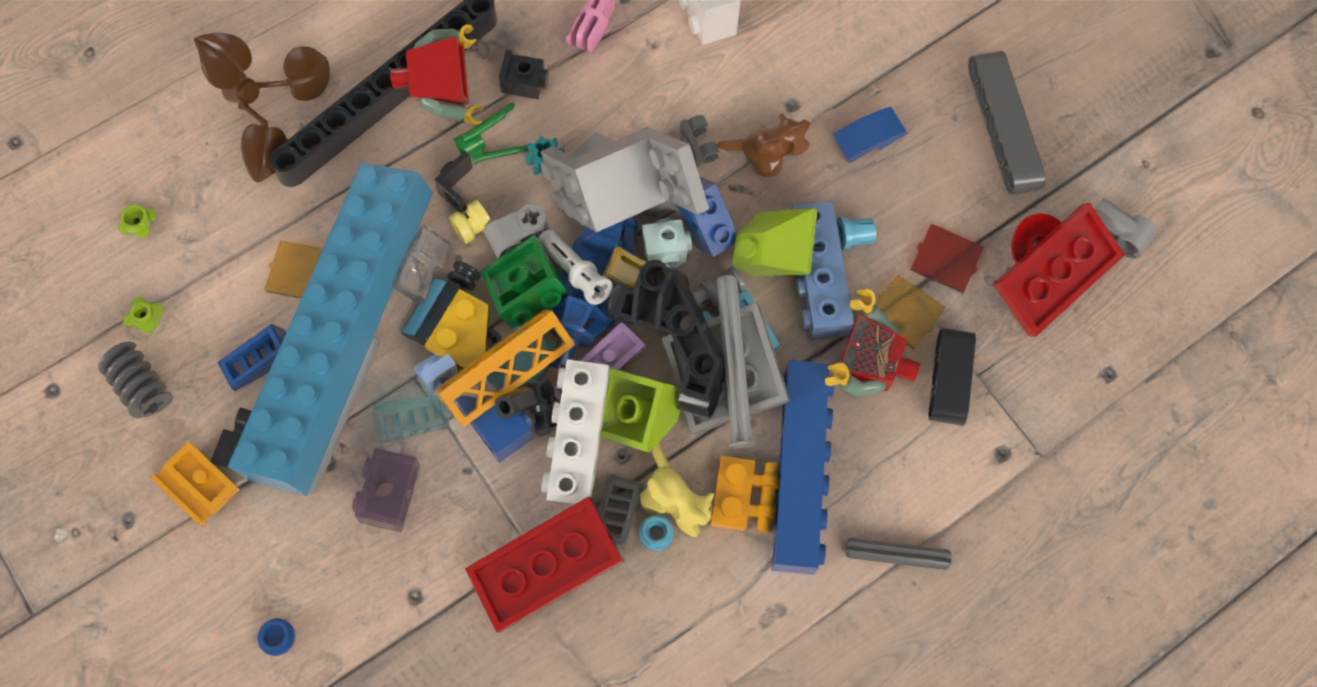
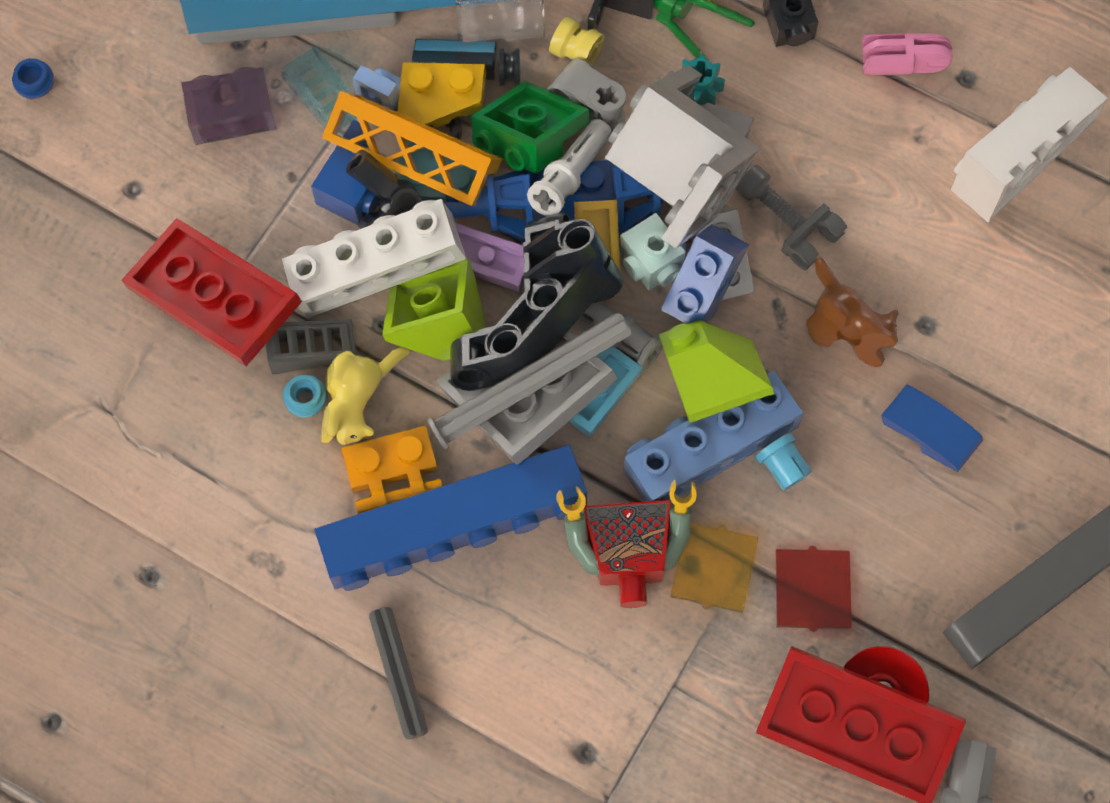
camera: 70 degrees right, 0 degrees up
(952, 376) = (650, 648): black beam -> none

